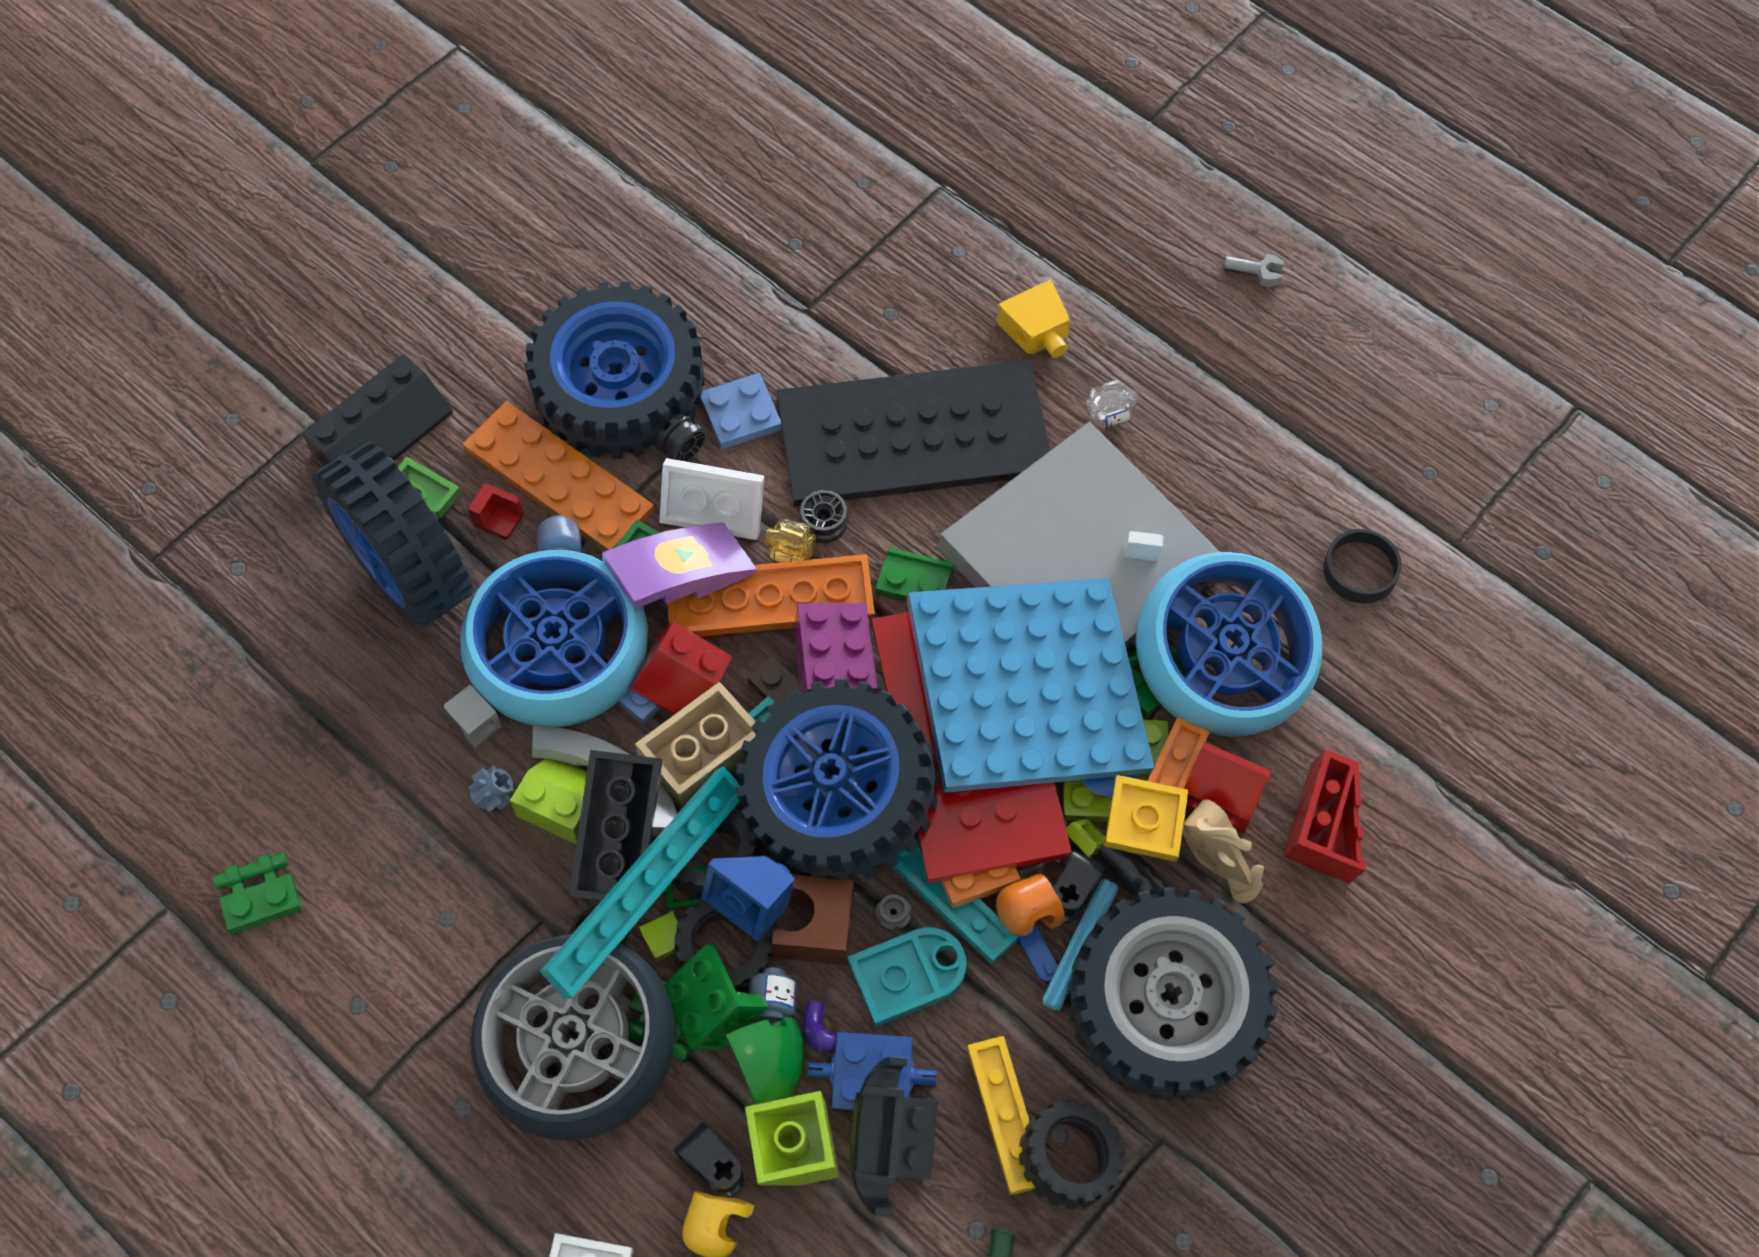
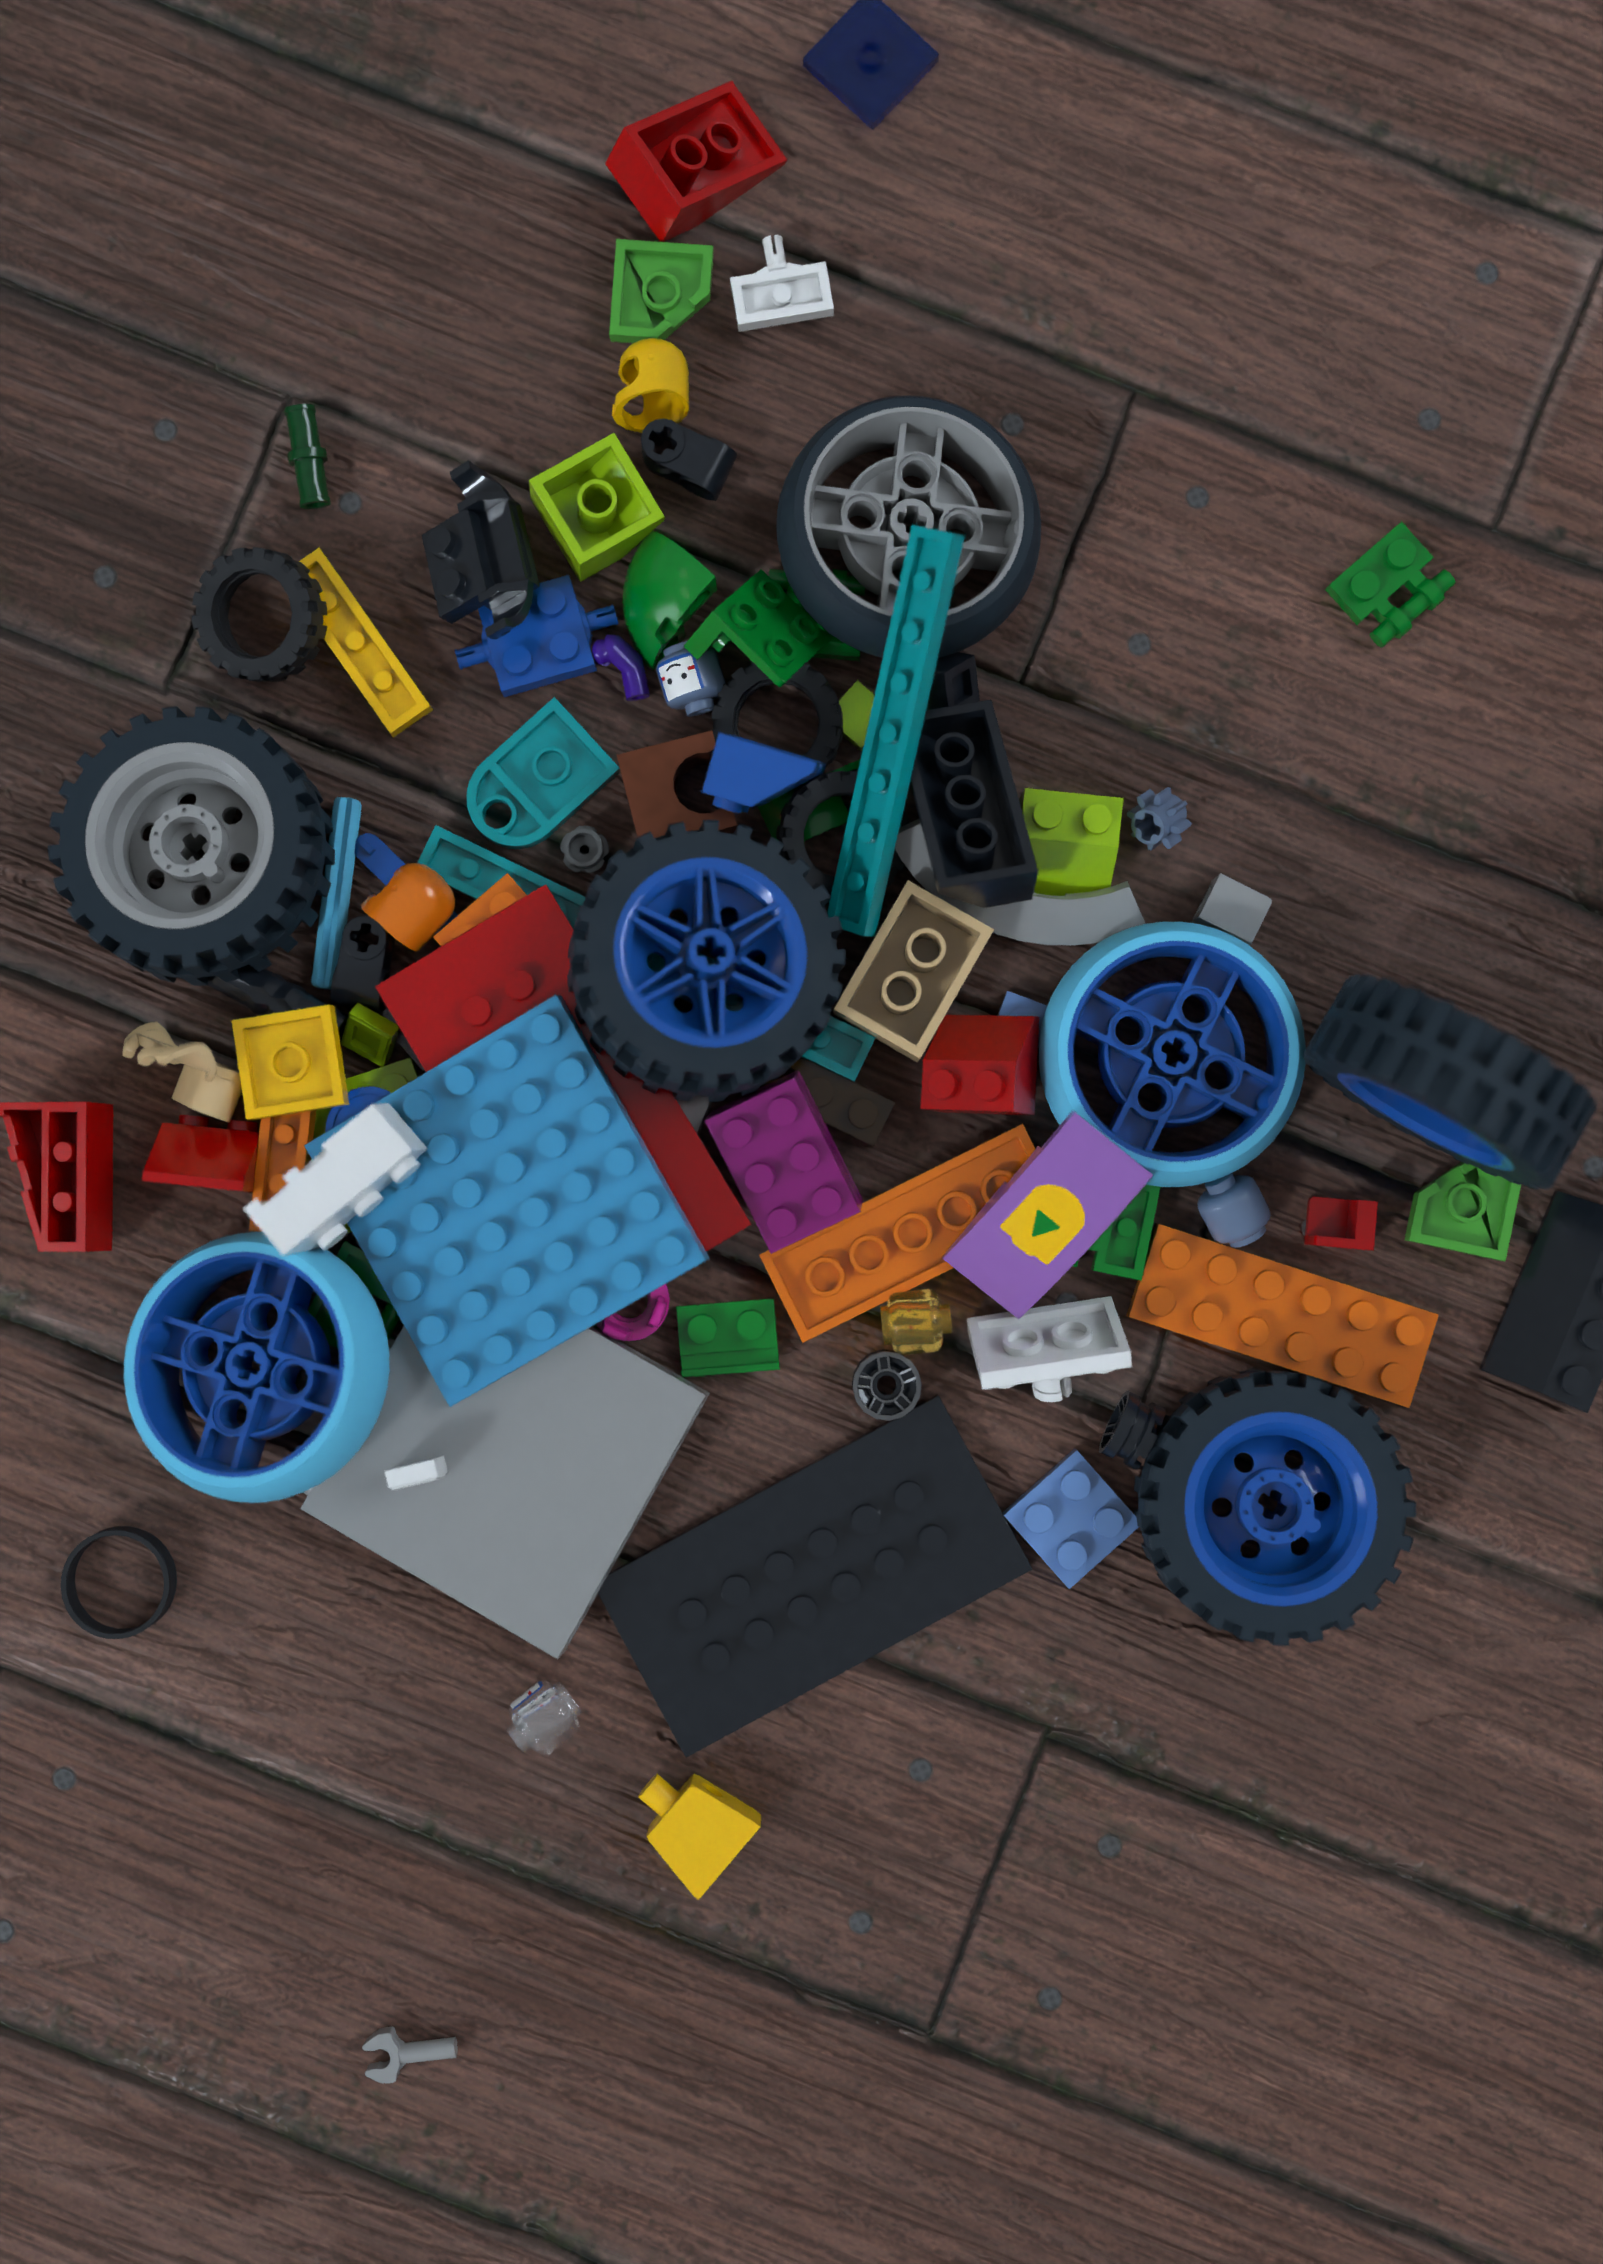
camera: 160 degrees right, 25 degrees up
(1136, 718) = (339, 1182): none -> white wedge

